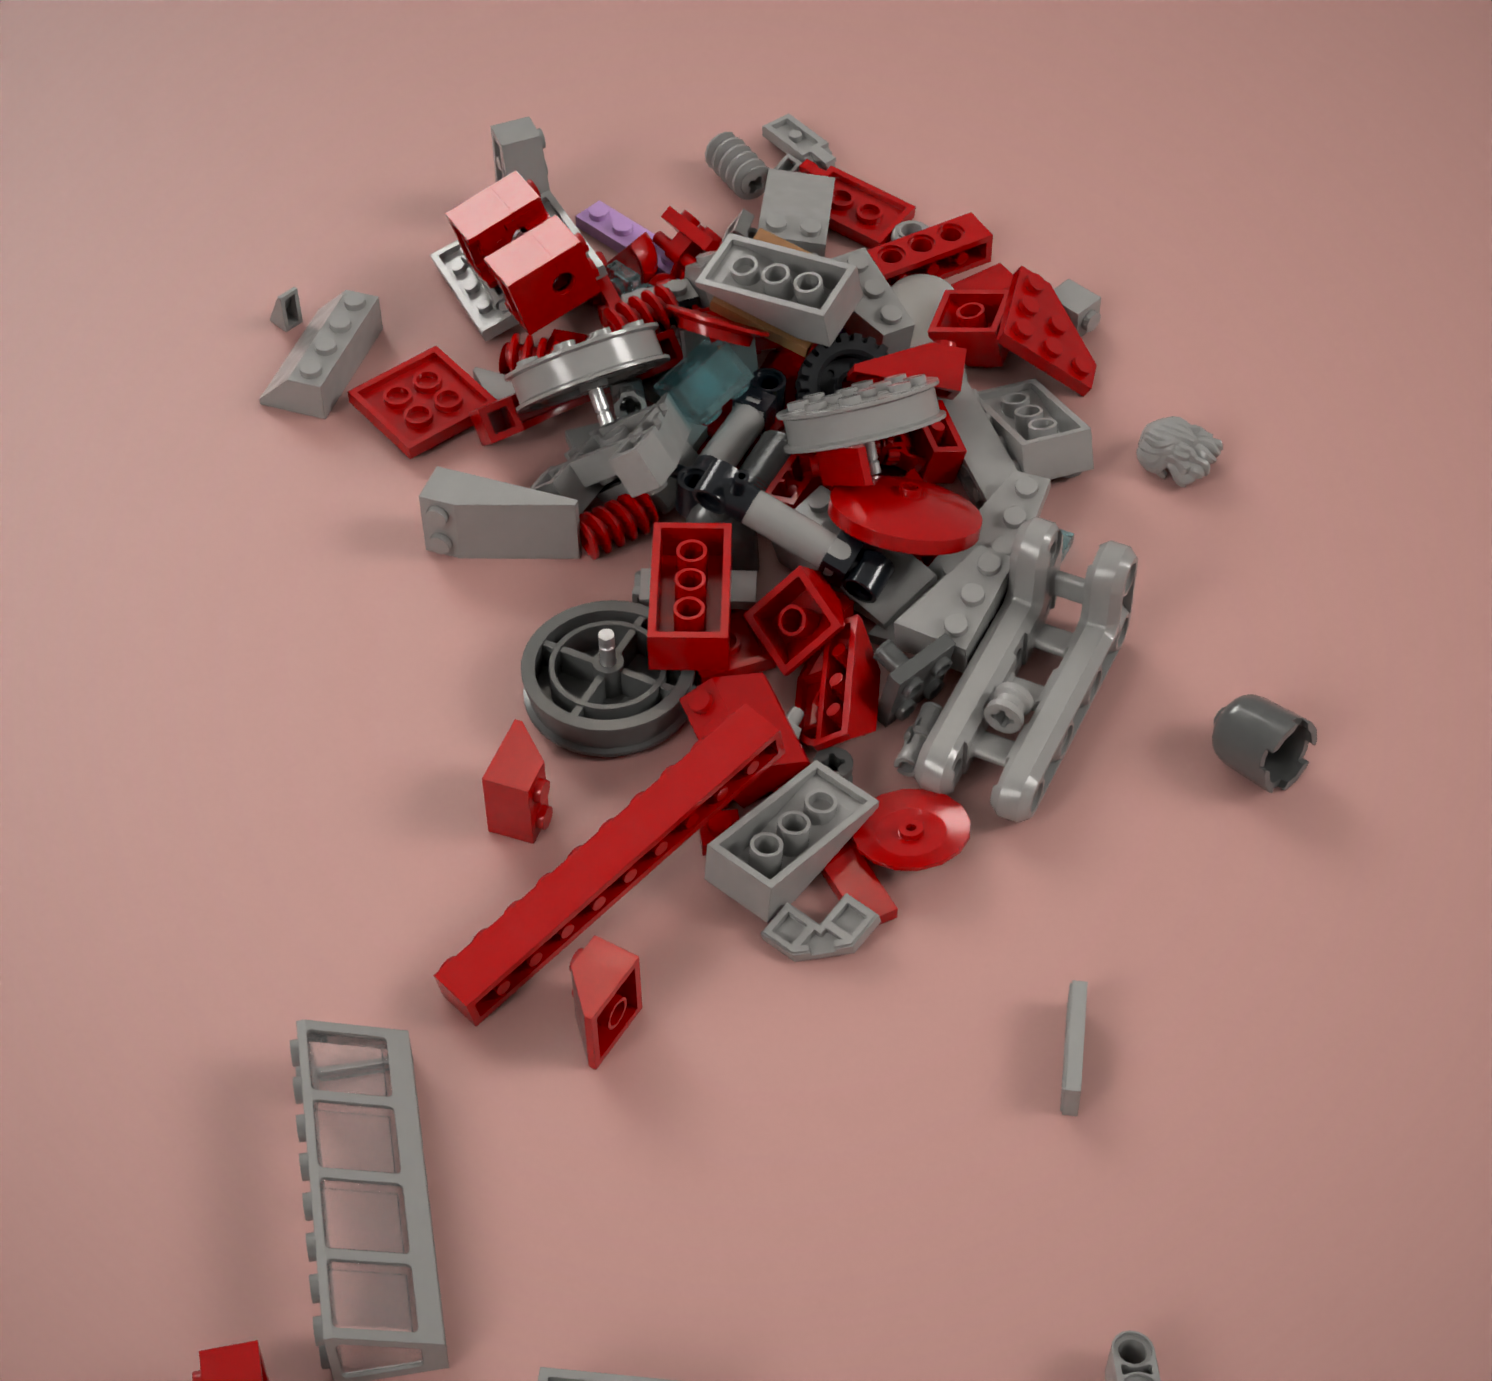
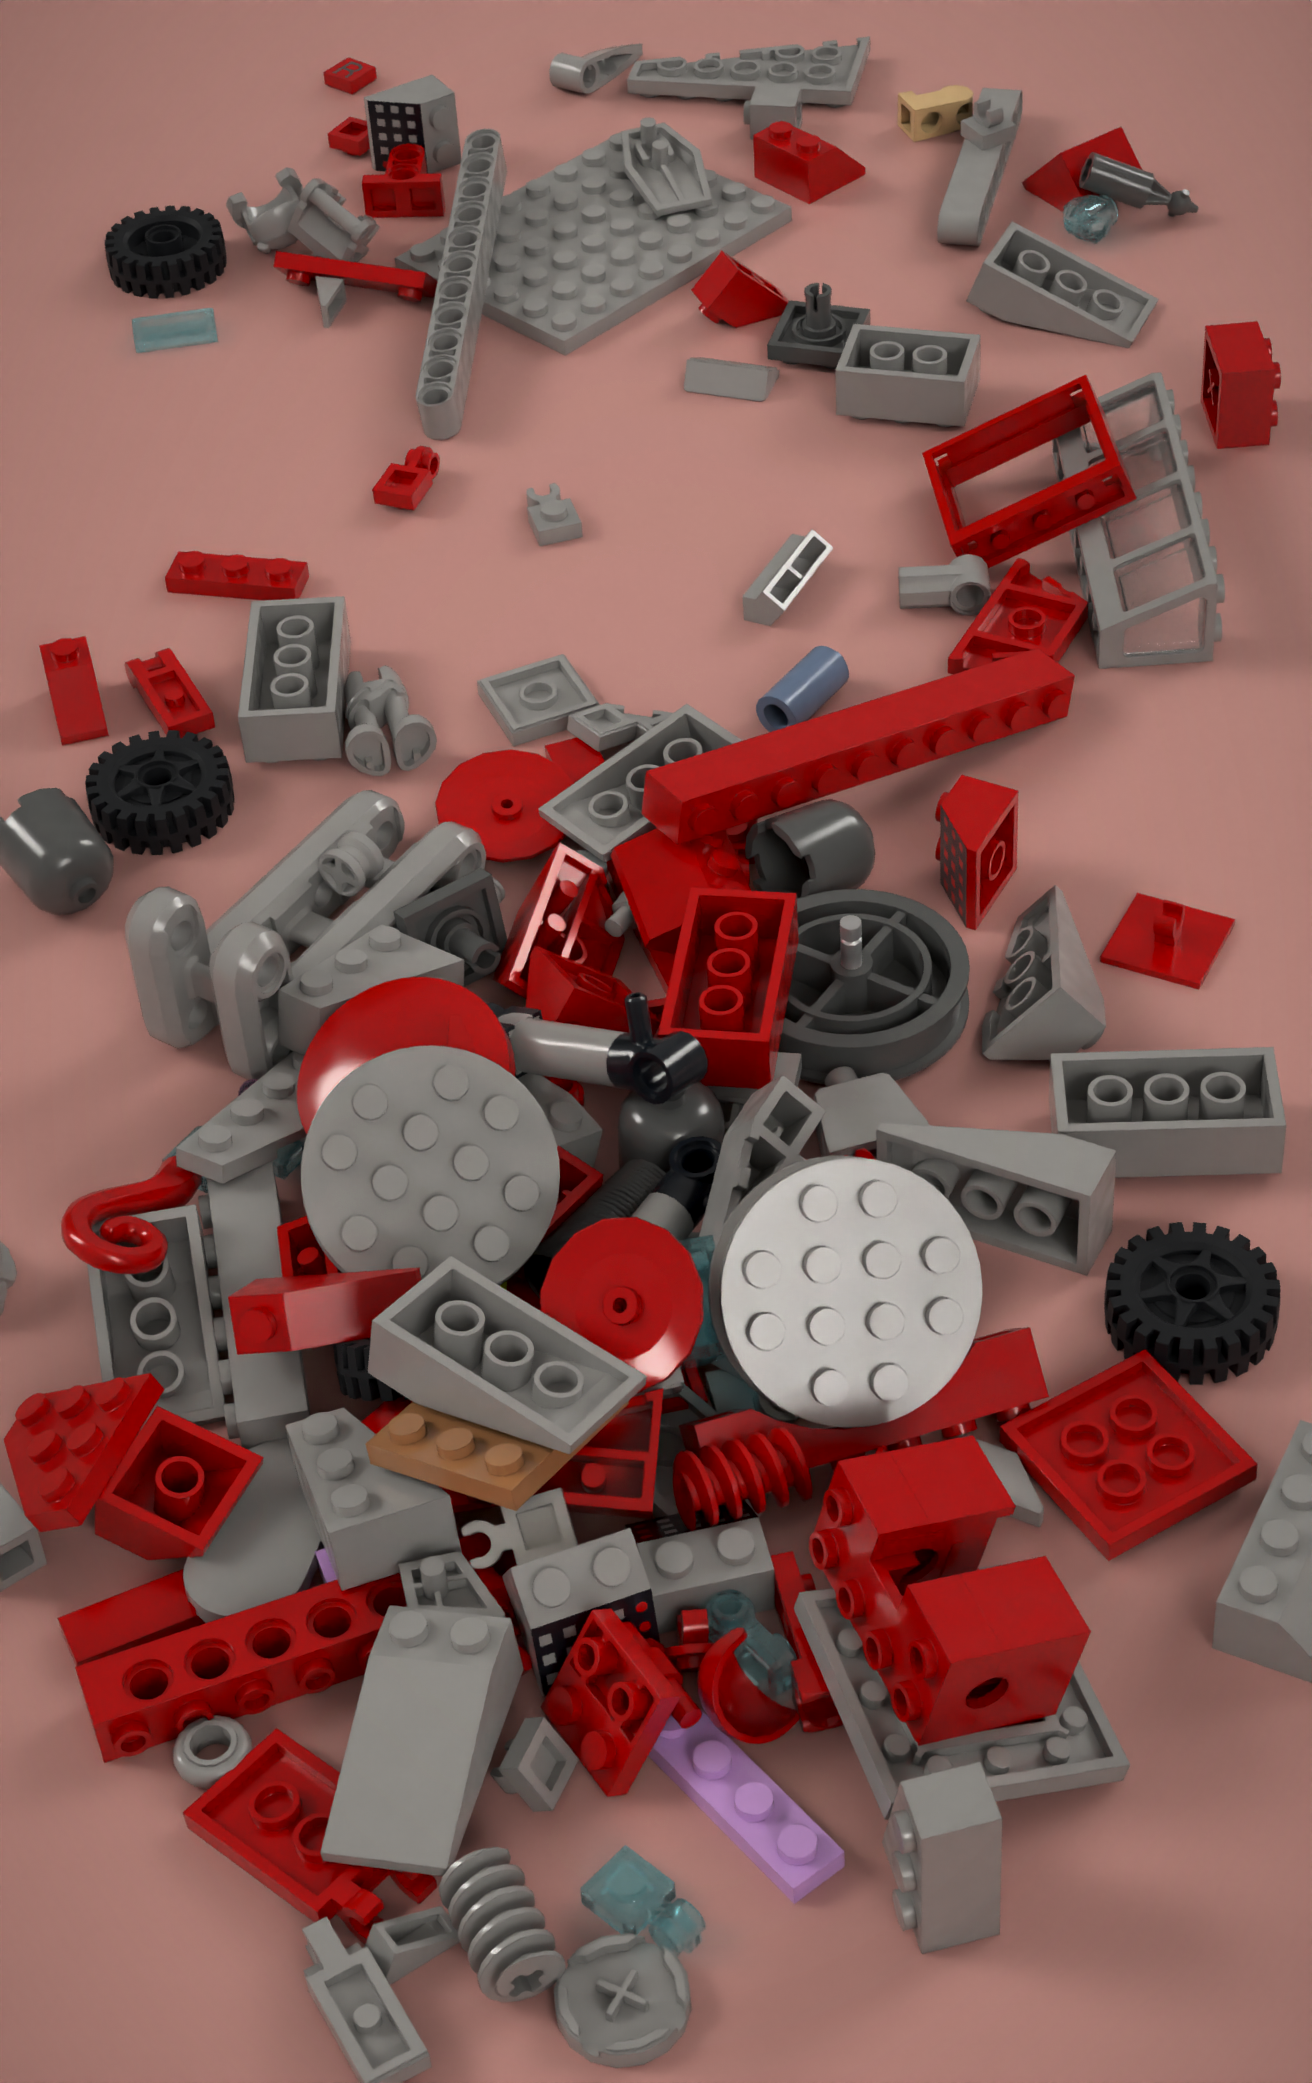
camera: 170 degrees left, 5 degrees down
(372, 768) = (1167, 941): none -> red piece
(375, 485) = (1193, 1301): none -> black wheel
(384, 589) = (1173, 1109): none -> light grey brick
(467, 691) = (1049, 990): none -> light grey wedge
(476, 1165) = (1047, 511): none -> red window
(480, 1080) = (1020, 618): none -> red wing
(542, 1124) = (959, 585): none -> light grey piece
(588, 574) = (856, 1110): none -> light grey torso
(604, 995) = (883, 643): red slope -> none
(637, 766) = (812, 849): none -> dark grey cylinder
(676, 165) = (622, 2001): none -> light grey tile
(677, 978) = (803, 689): none -> sand blue brick
(679, 196) = (634, 1893): none -> clear light blue plate
(709, 1130) = (784, 577): none -> light grey piece
(918, 976) = (535, 698): none -> light grey tile
(965, 1220) = (552, 518): none -> light grey plate
(1067, 935) = (369, 709): none -> light grey piece
(1071, 451) = (165, 1190): none -> red plant
(1073, 1048) = (397, 616): light grey tile -> none
(1132, 1247) = (407, 484): none -> red plate
(1138, 946) = (295, 680): none -> light grey brick
(1212, 836) = (160, 792): none -> black wheel
(1255, 950) = (170, 693): none -> red plate
(1257, 1116) = (236, 576): none -> red plate
(1343, 942) = (73, 690): none -> red slope

